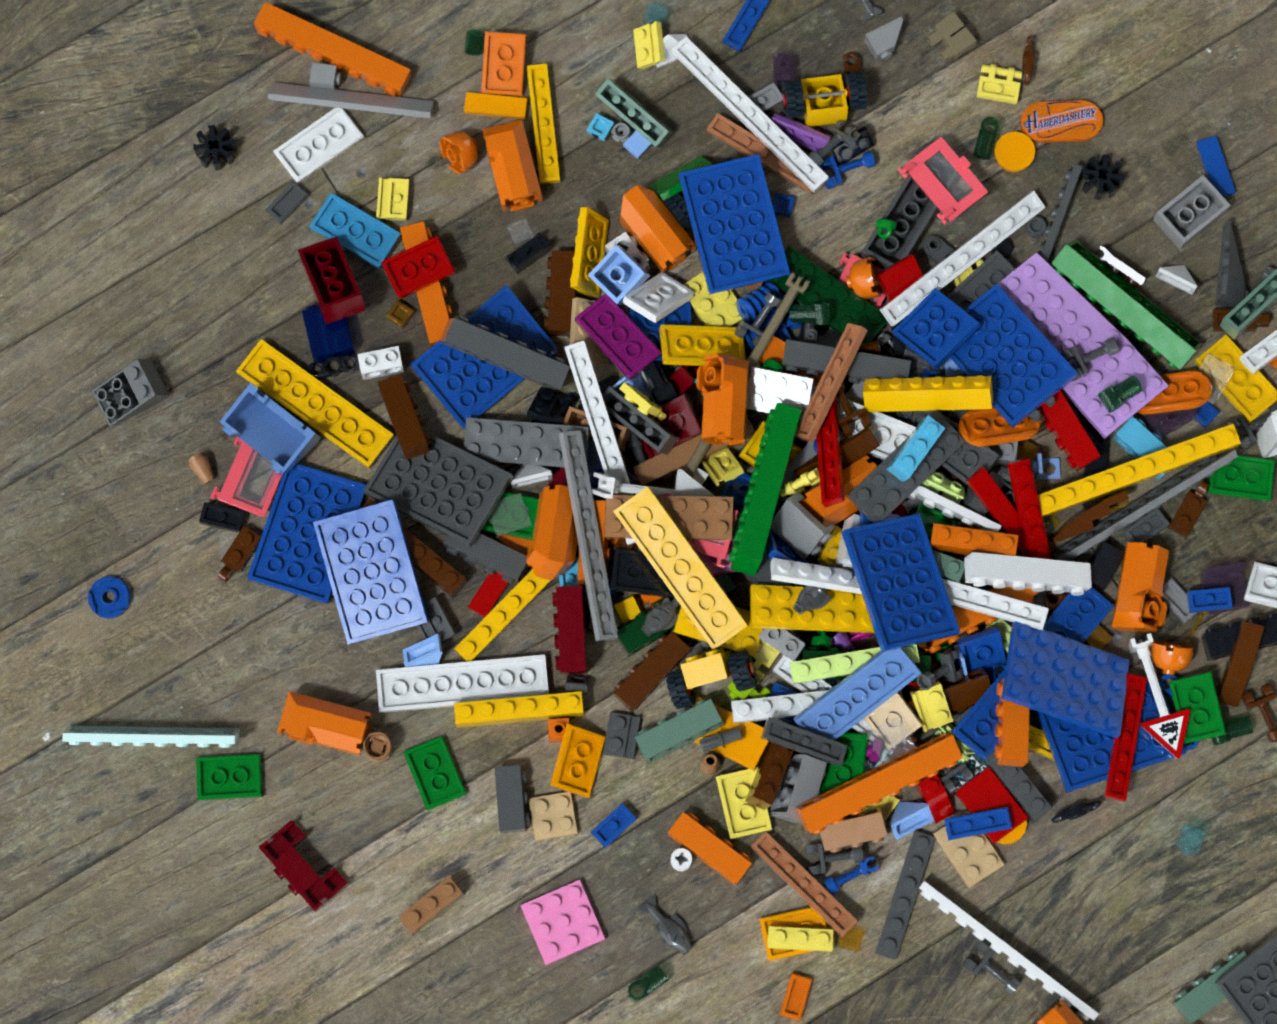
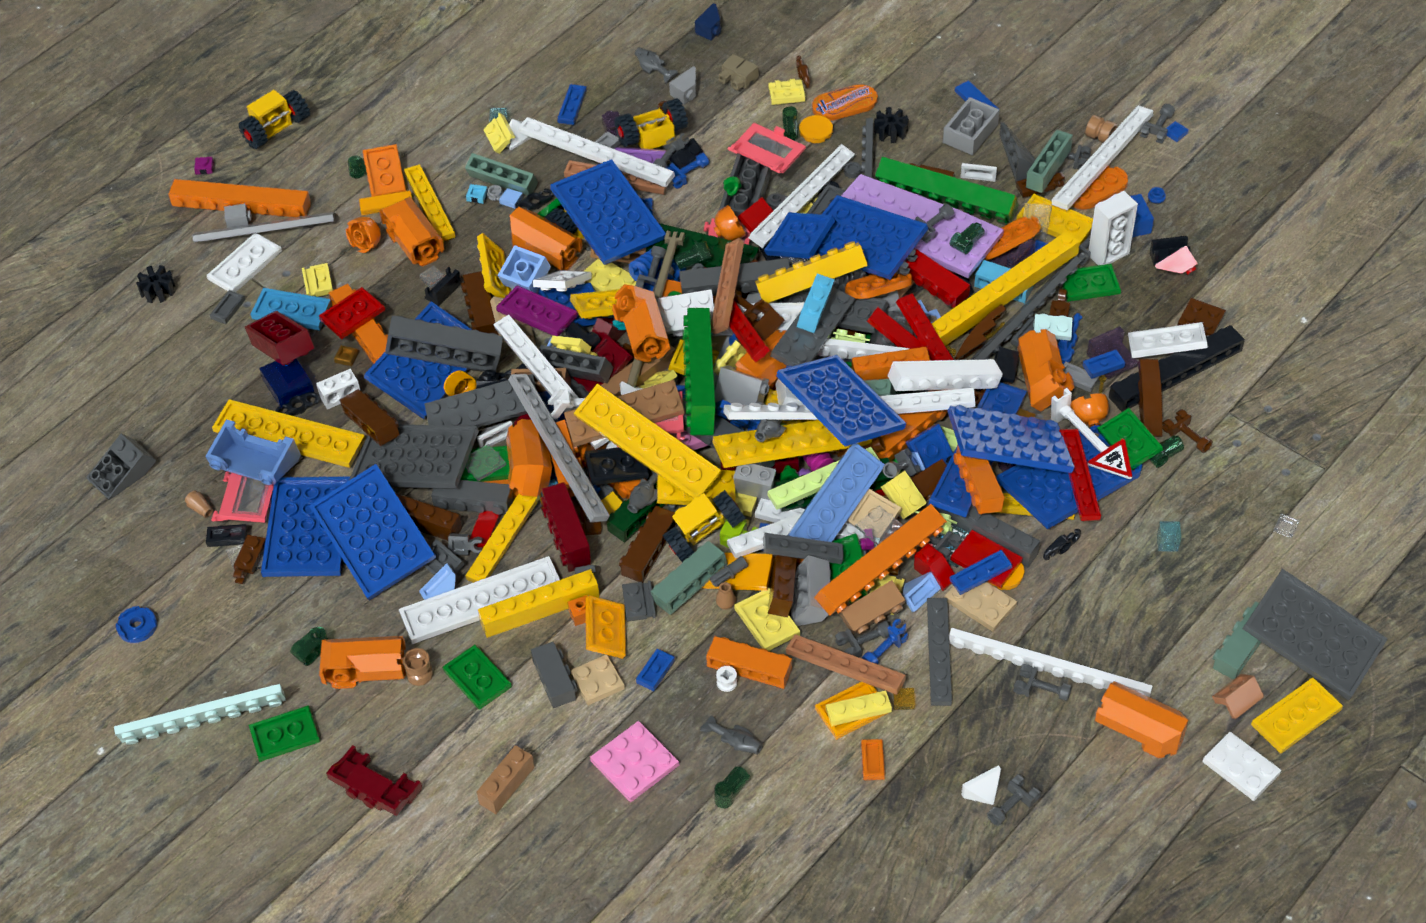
camera: 15 degrees left, 25 degrees down
(275, 687) = (309, 647): none -> clear green piece
(460, 610) = (461, 544): none -> dark grey plate
(510, 403) = (458, 383): none -> light orange cap
(672, 159) = (539, 196): none -> black piece
(1173, 538) = (1058, 325): none -> light aqua bracket
(1185, 550) = (1065, 346): none -> blue piece

